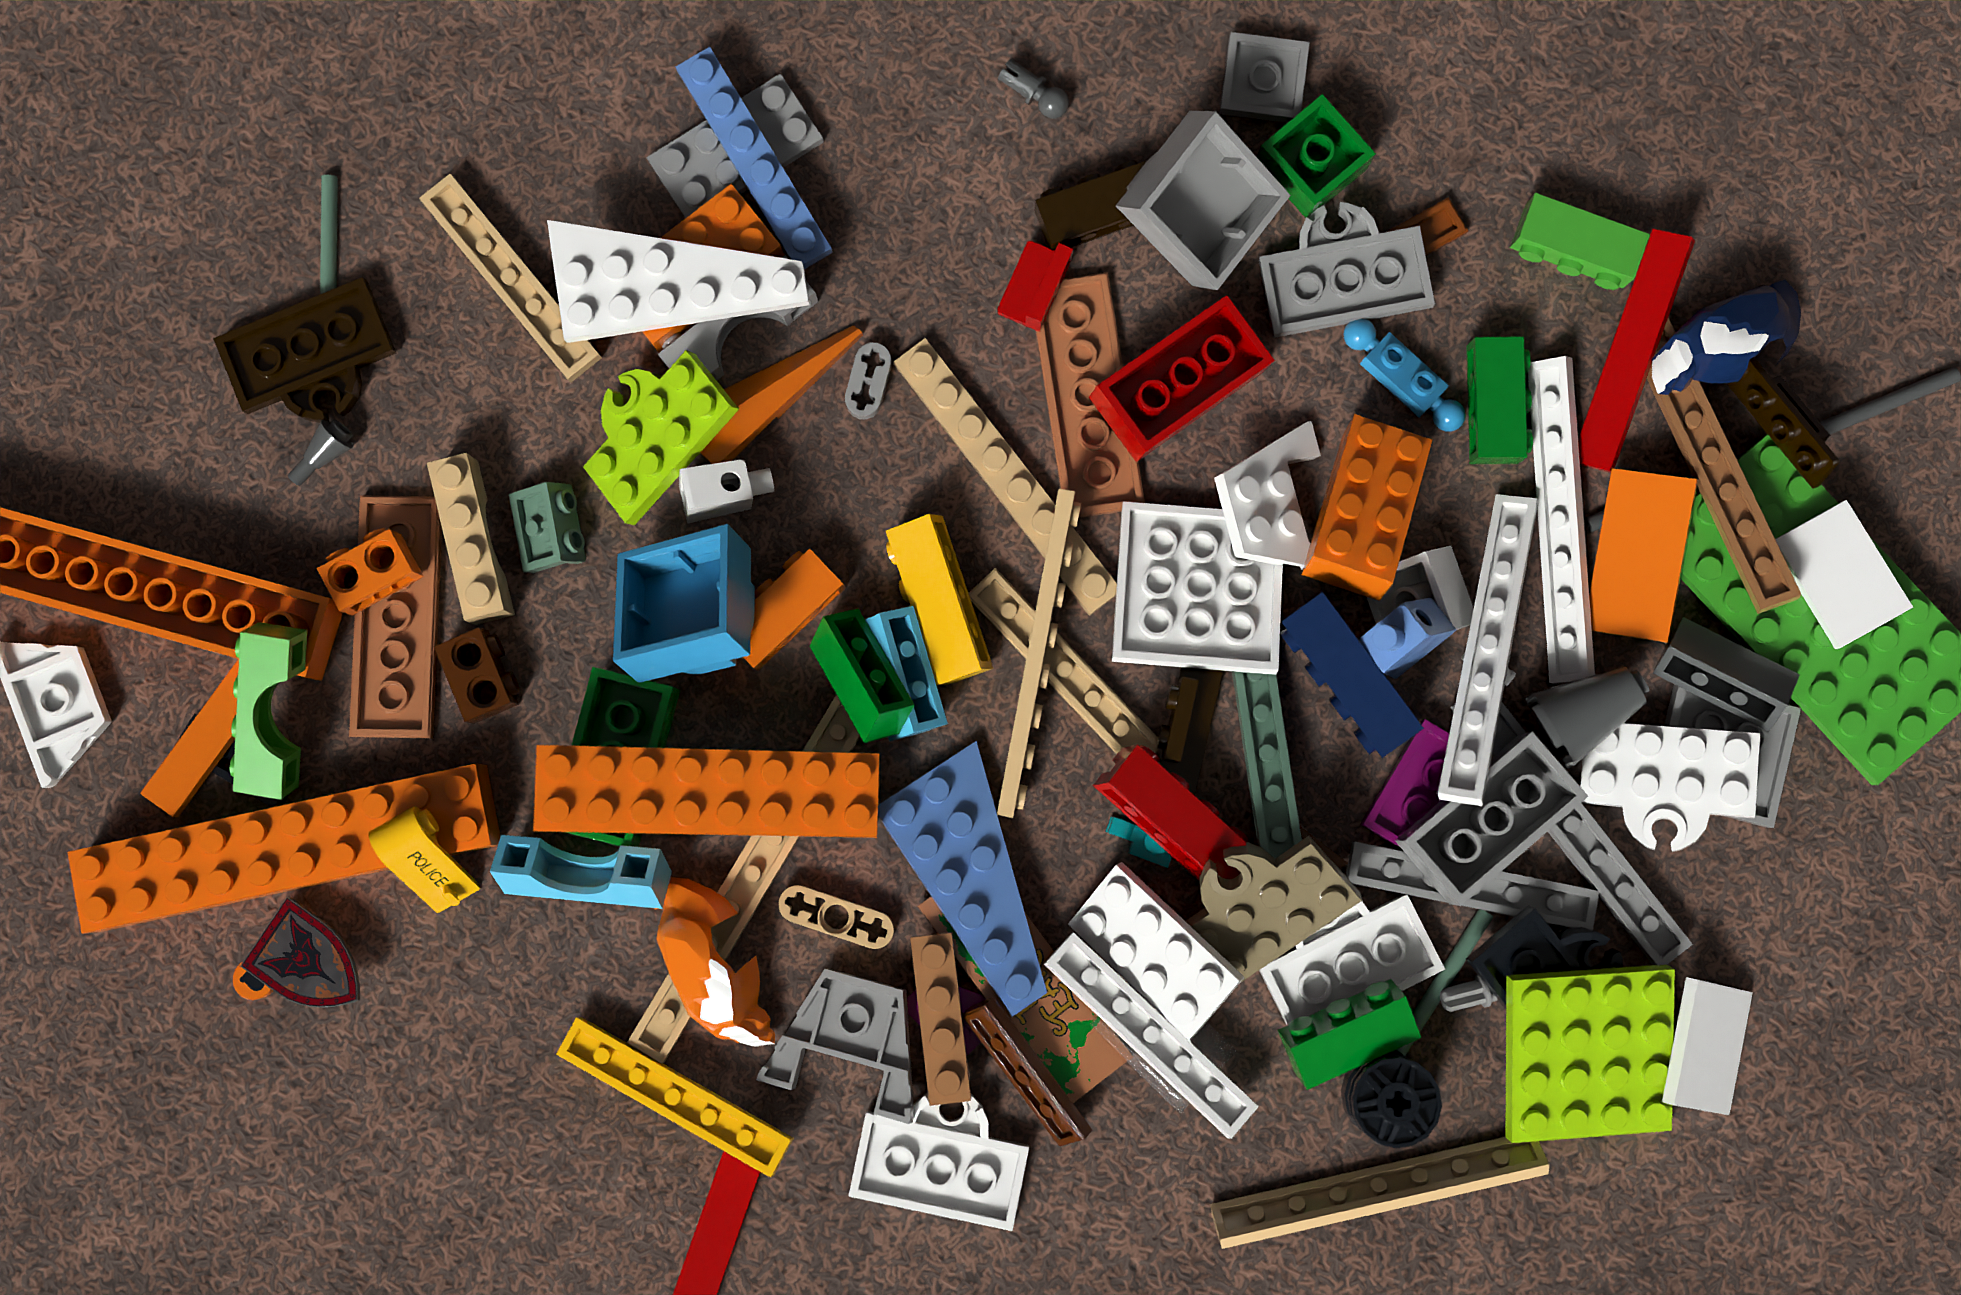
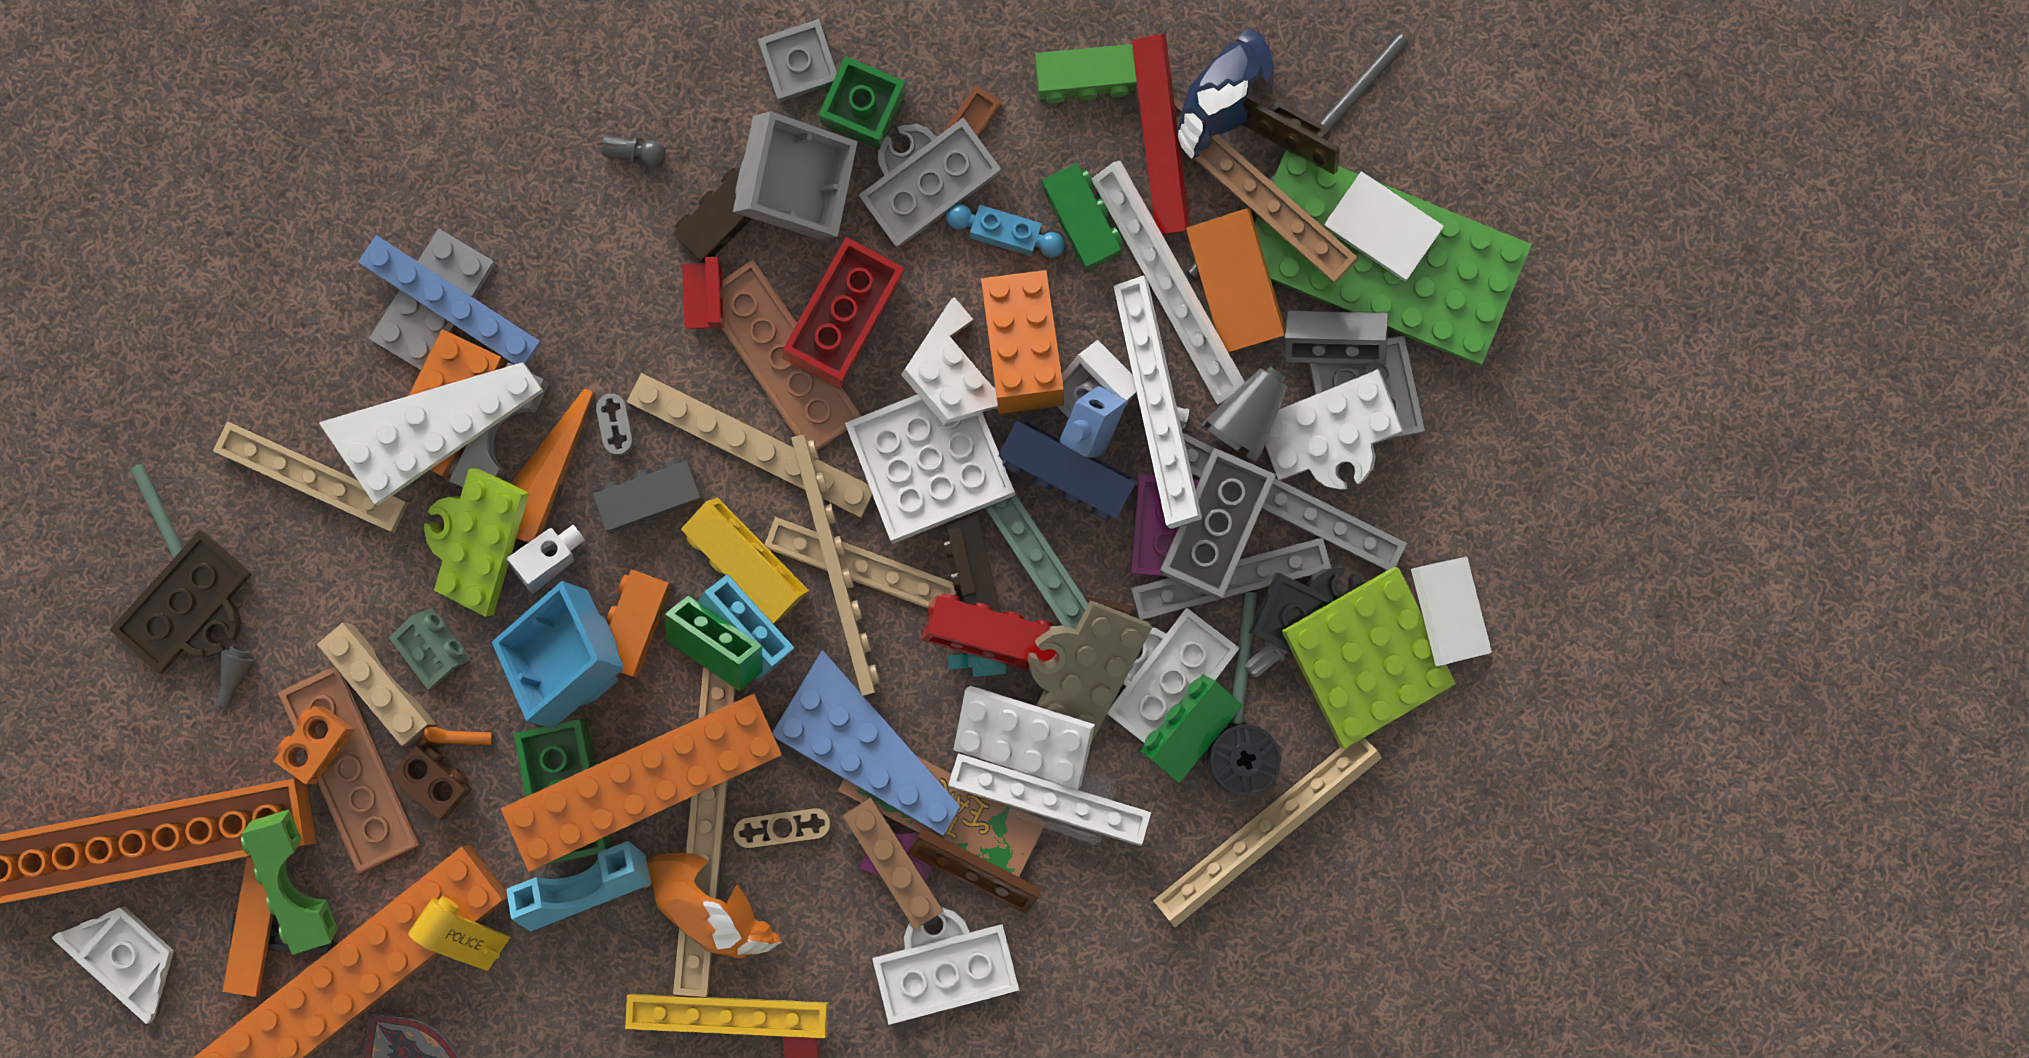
camera: 30 degrees left, 0 degrees up
(508, 628) = (439, 736): none -> orange piece
(856, 1023) = (834, 897): light grey wing -> none
(866, 476) = (647, 495): none -> dark grey brick

